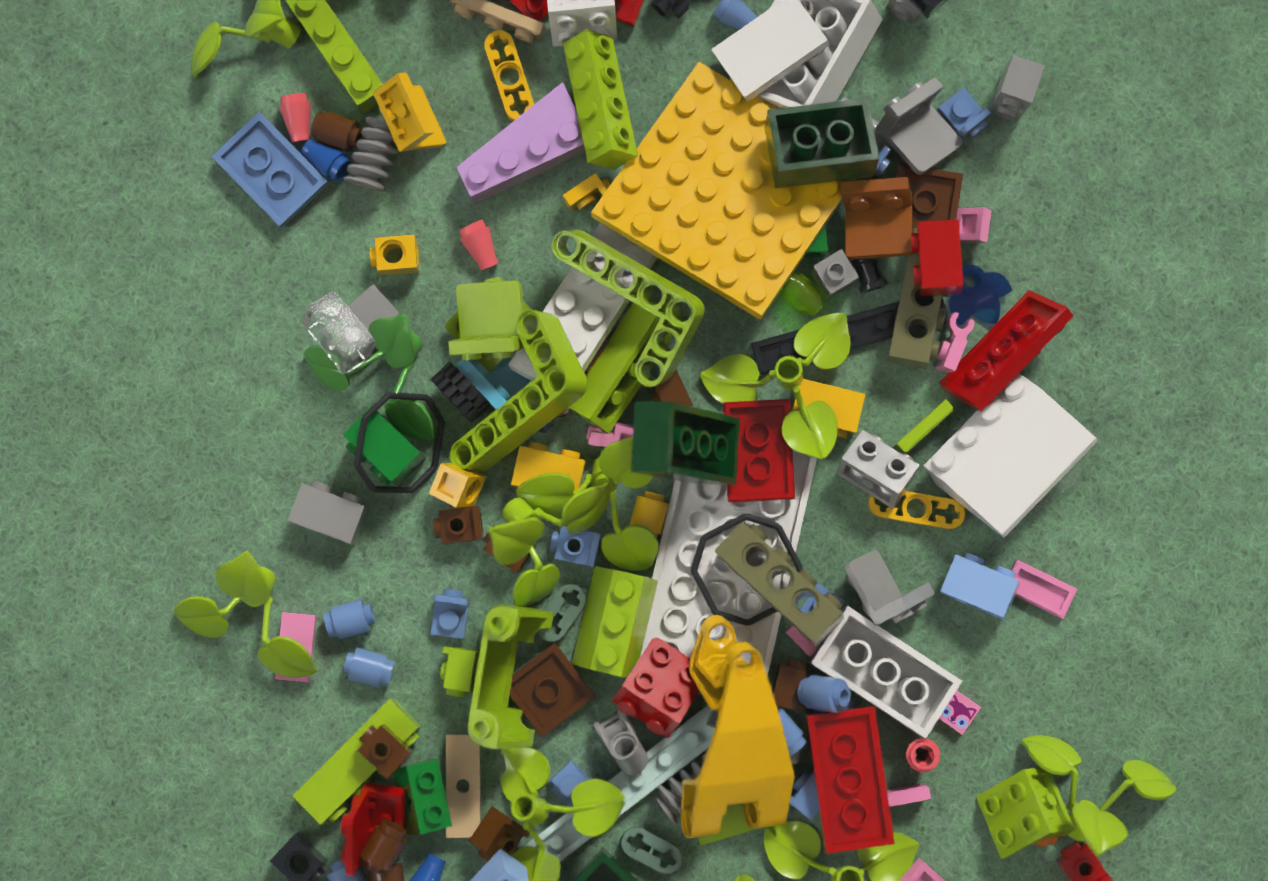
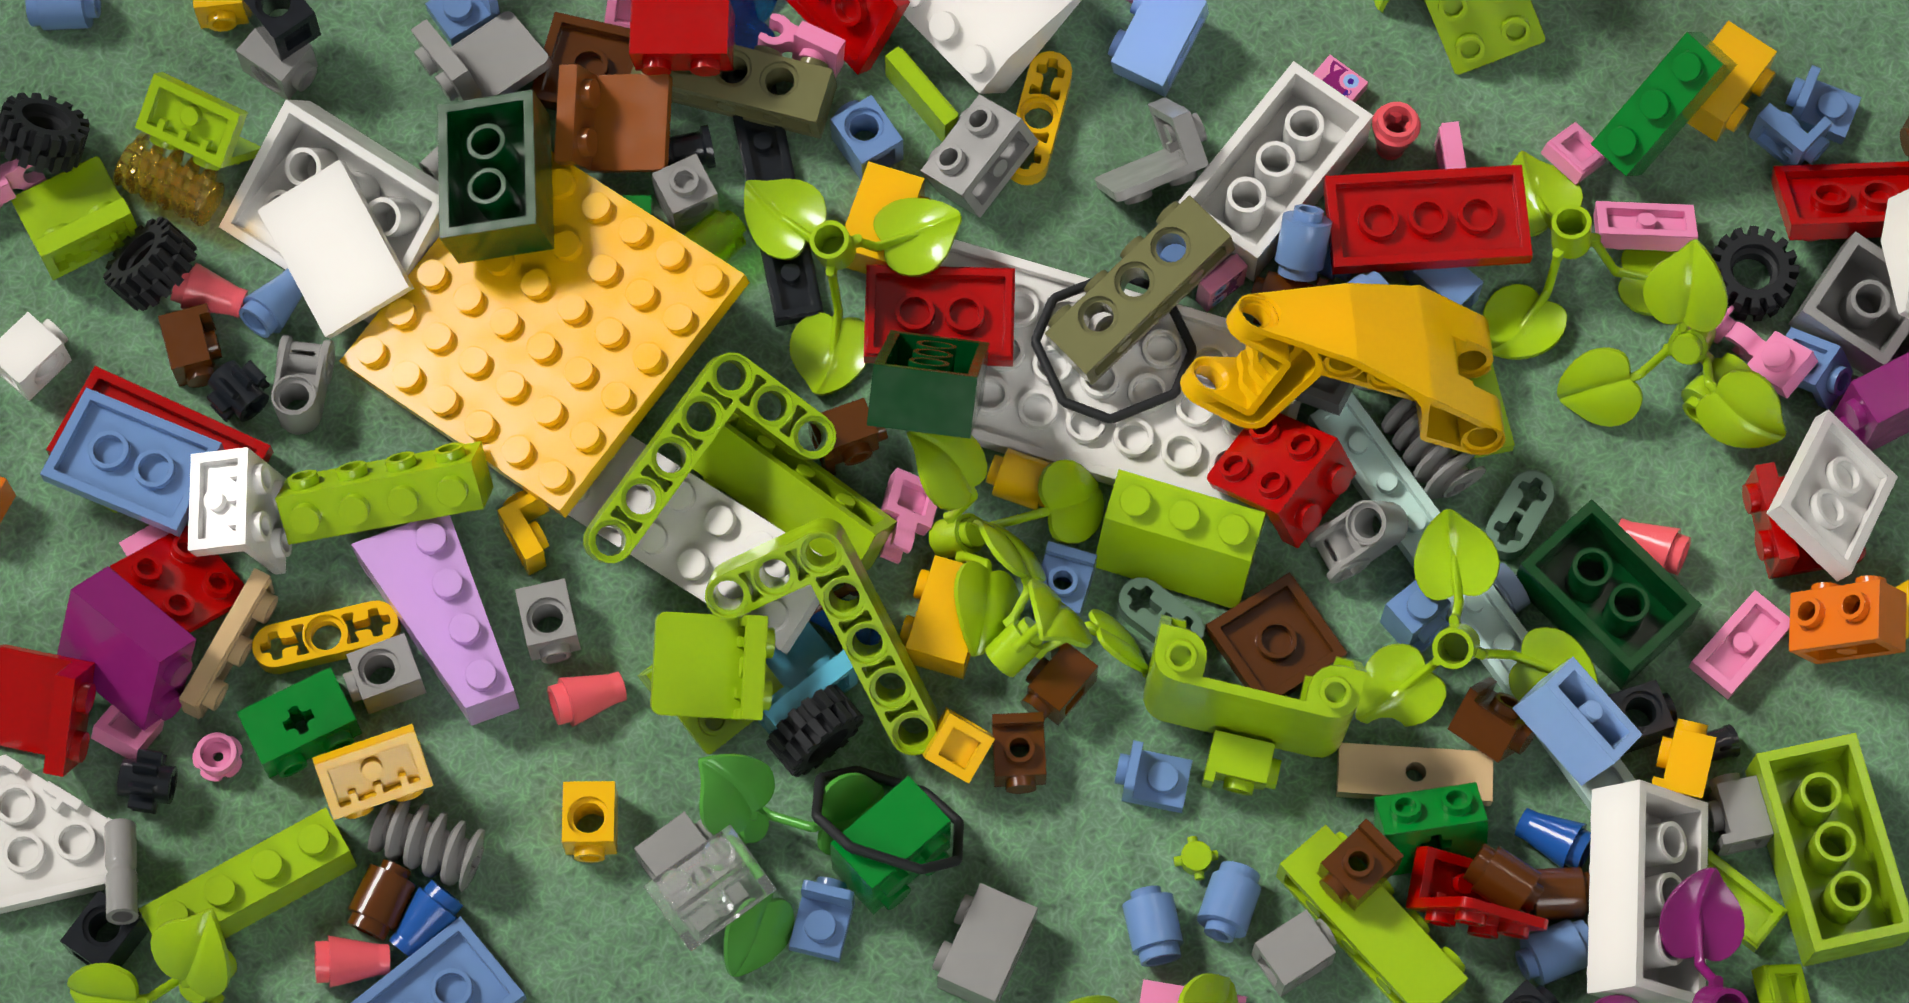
camera: 85 degrees left, 15 degrees down
(337, 712) = (1295, 952): none -> light grey brick
(341, 407) = (822, 918): none -> medium blue bracket
(400, 645) = (1196, 858): none -> lime piece
(421, 11) = (211, 745): none -> bright pink plate
(443, 48) = (273, 720): none -> green brick
(485, 129) = (392, 654): none -> light grey brick
(533, 202) = (545, 601): none -> light grey brick
(594, 844) = (1511, 589): none -> sand blue tile
(684, 38) = (302, 374): none -> light grey piece
(875, 397) = (866, 115): none -> medium blue brick

